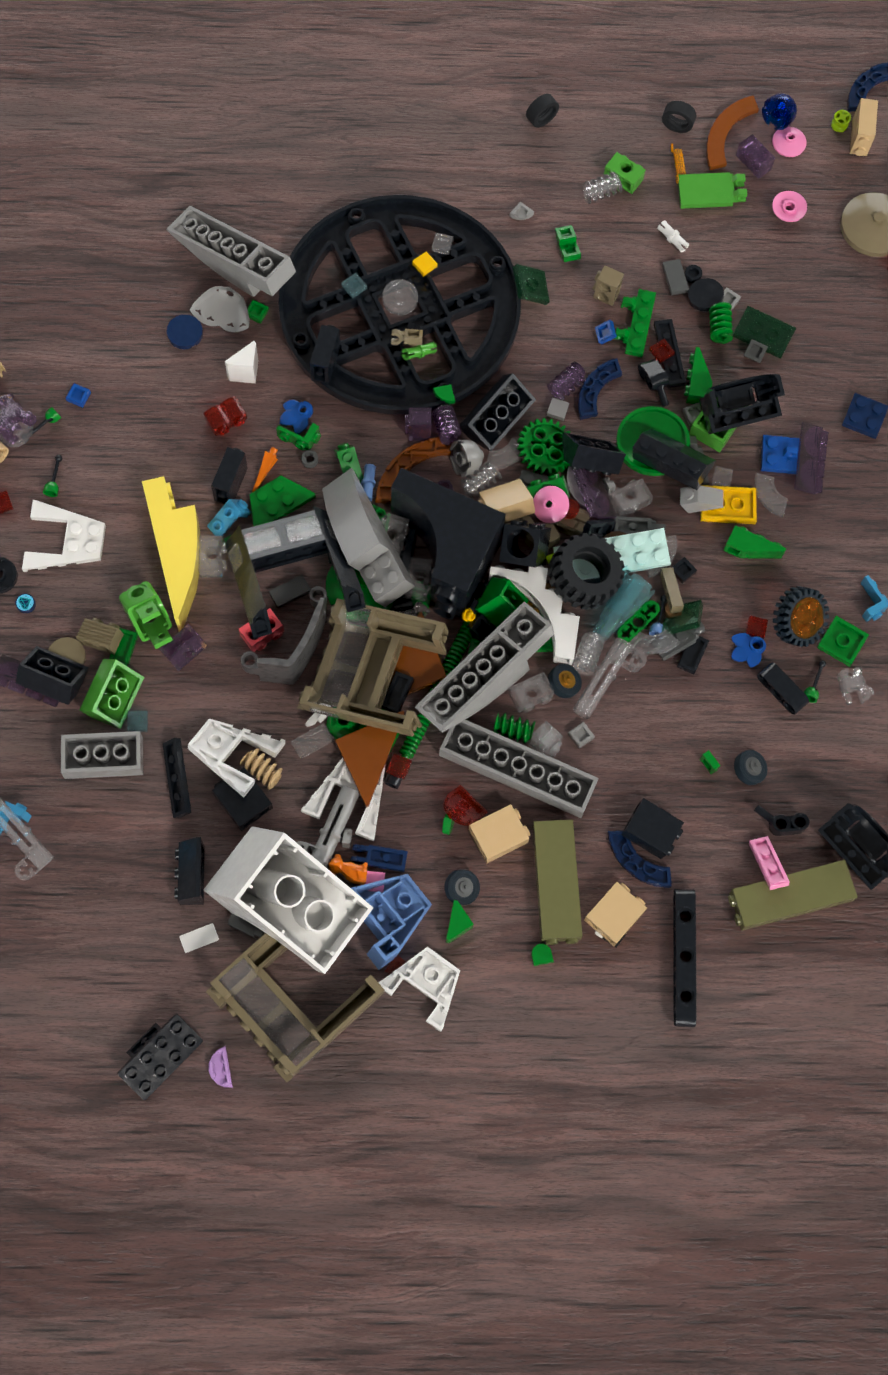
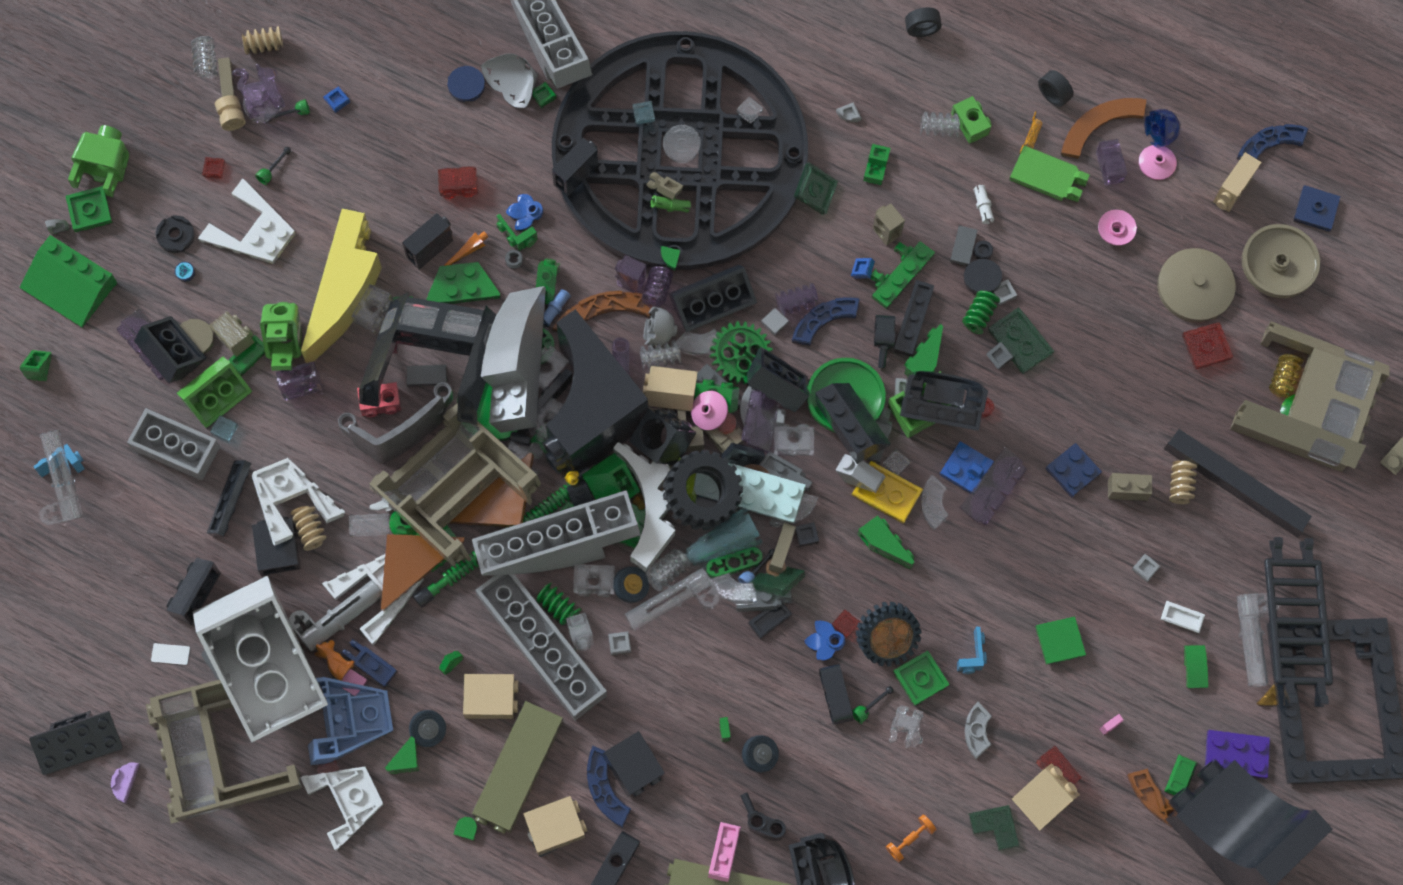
camera: 30 degrees right, 0 degrees up
(228, 515) = (408, 276): dark azure bracket -> none
(243, 365) = (500, 141): white slope -> none
(347, 836) = (350, 629): light grey tile -> none
(397, 692) = (469, 518): black tile -> none
(399, 766) = (431, 587): clear red tile -> none
(424, 263) = (722, 122): yellow tile -> none
(463, 807) = (469, 655): clear red tile -> none
(661, 350) = (905, 312): clear red tile -> none
(841, 121) = (1225, 163): lime wheel -> none

